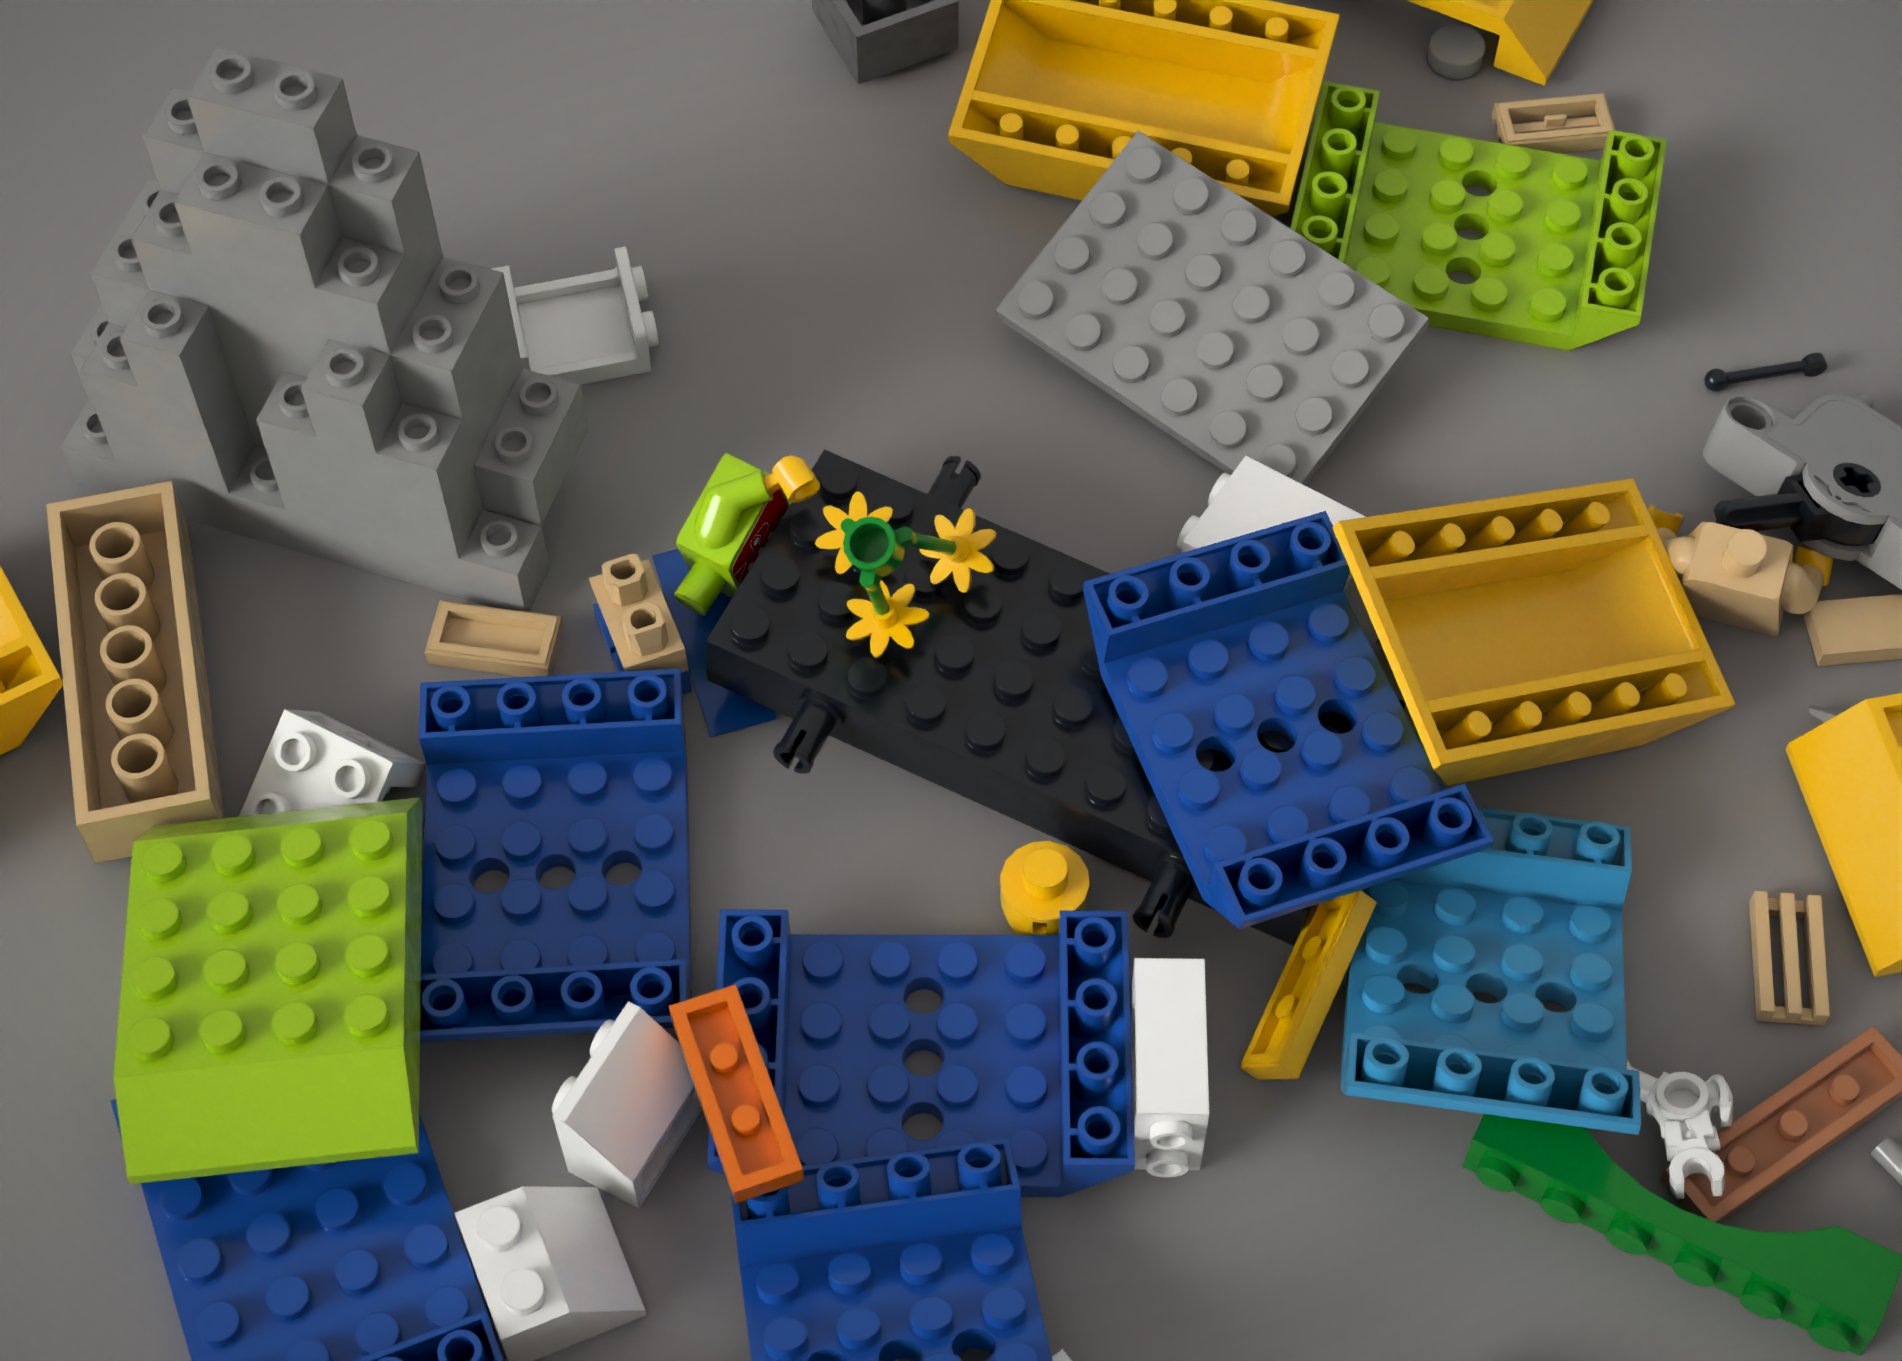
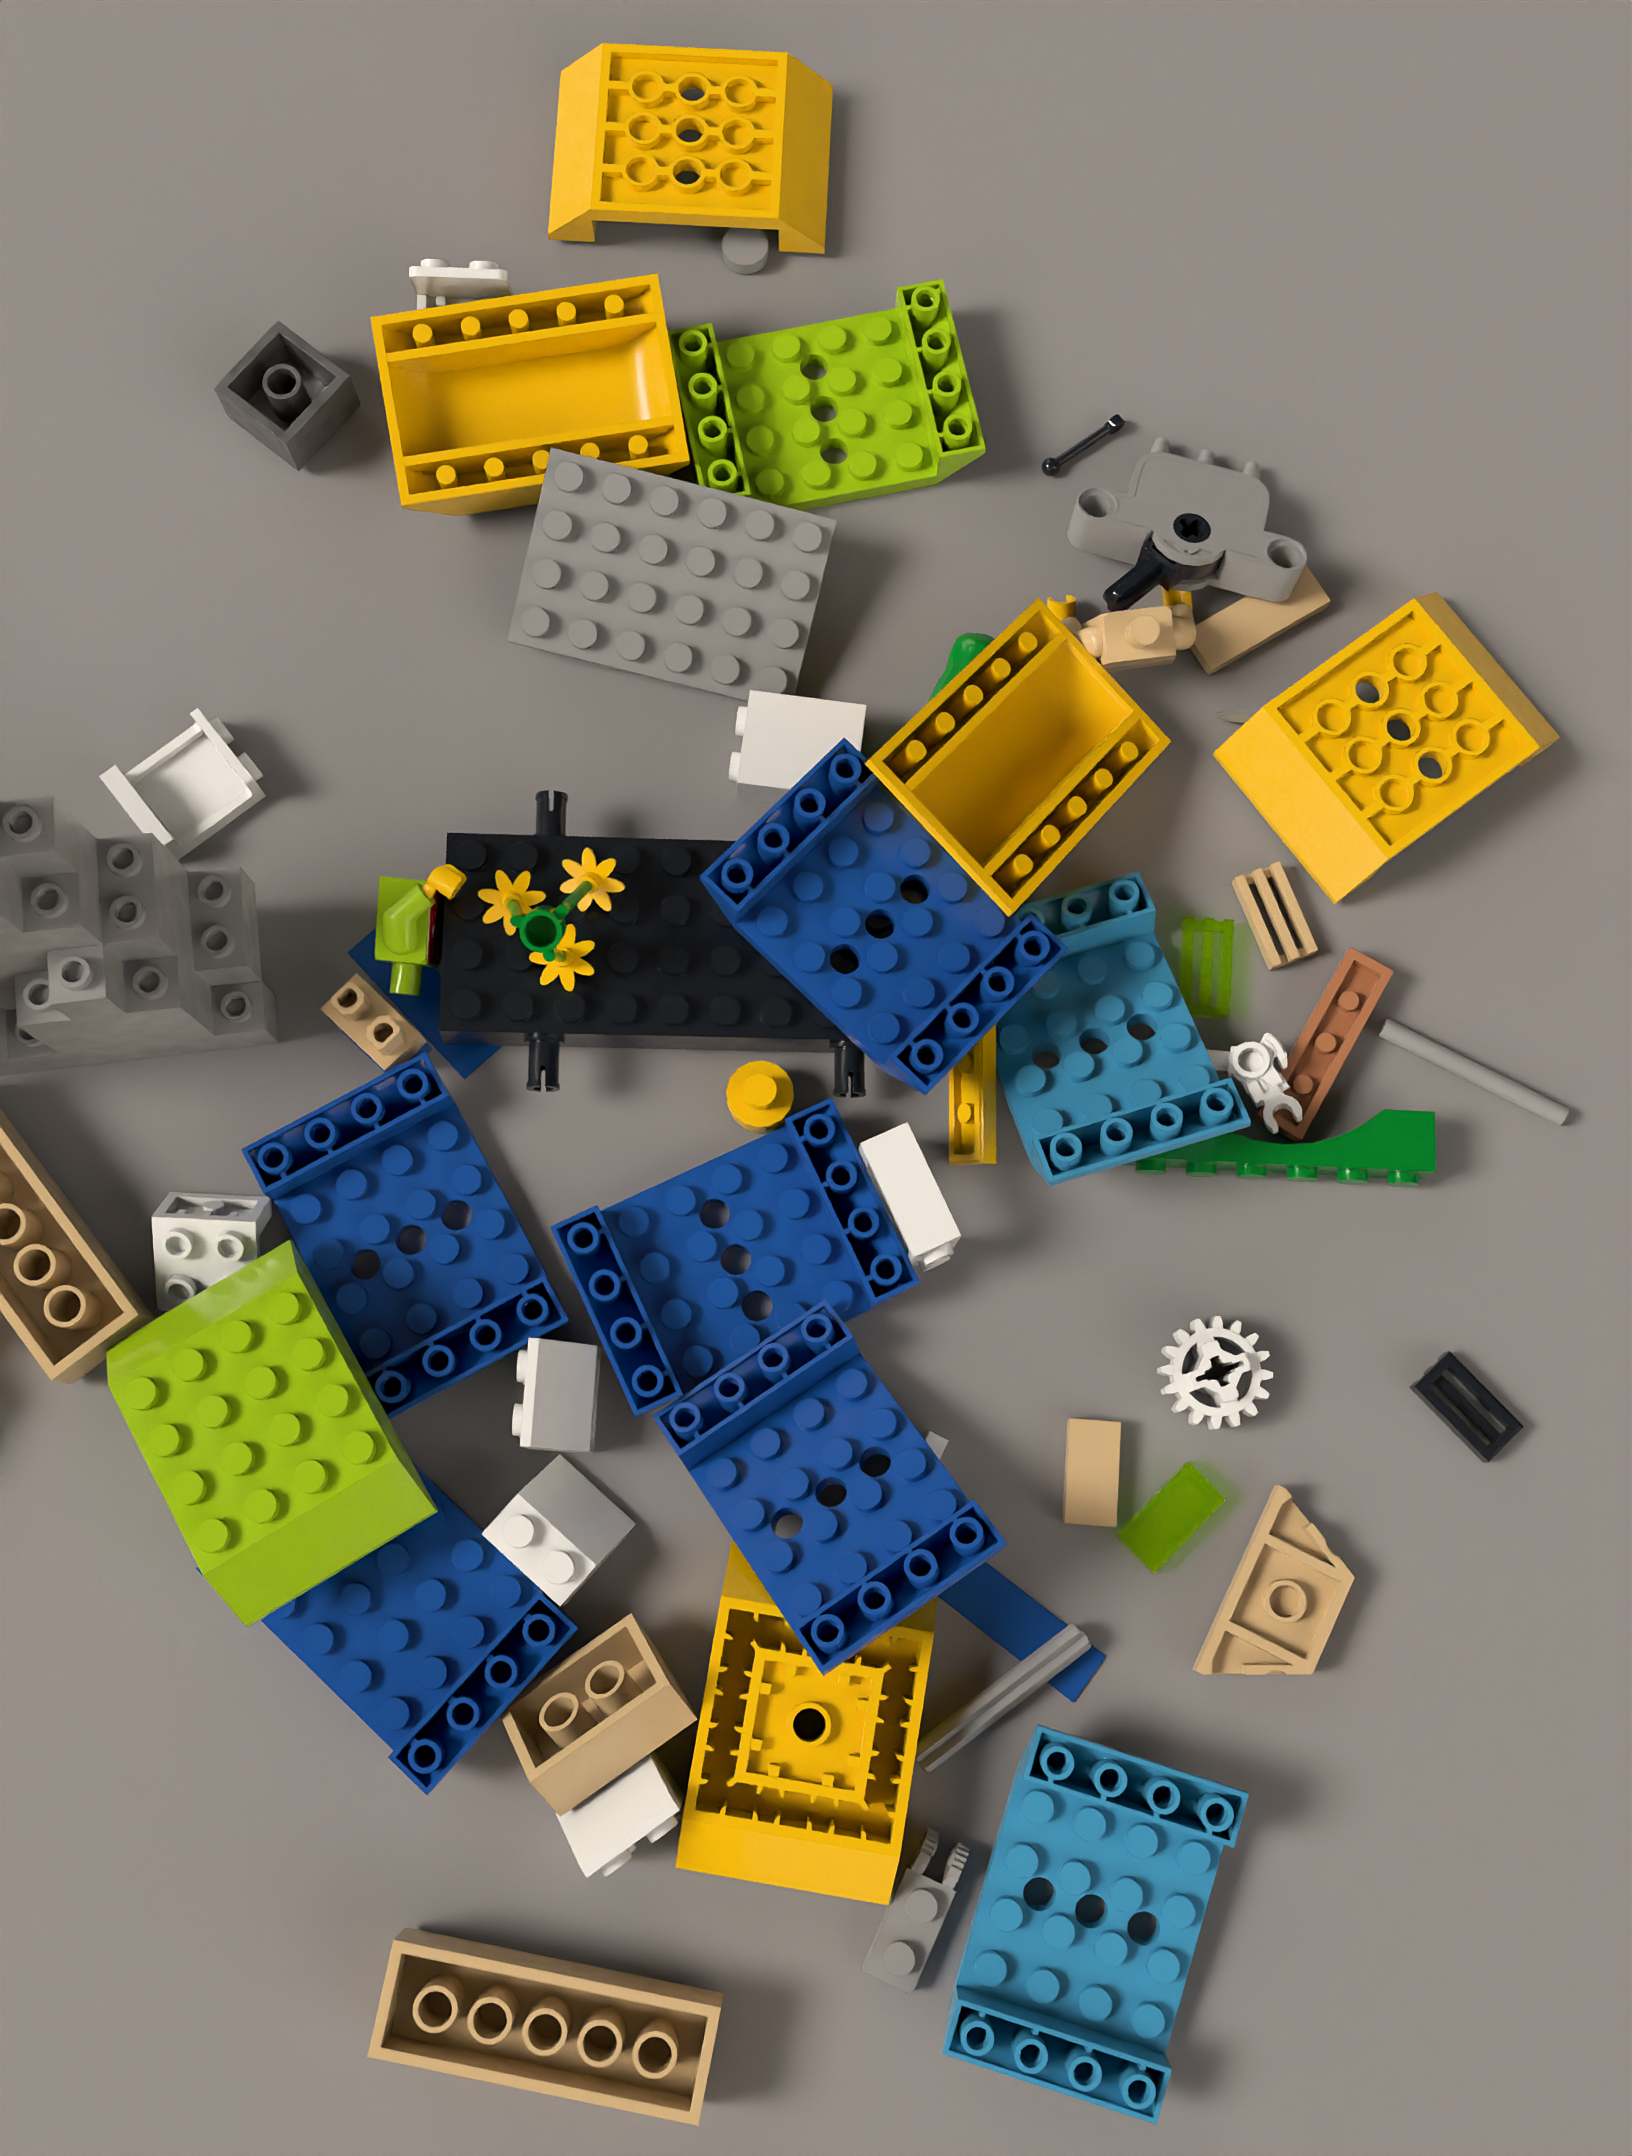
camera: 30 degrees left, 20 degrees up
(494, 640) = (267, 1075): tan tile -> none
(736, 1094) = (634, 1366): orange plate -> none
(1556, 131) = (852, 292): tan tile -> none
(1693, 937) = (1208, 928): none -> clear neon green tile

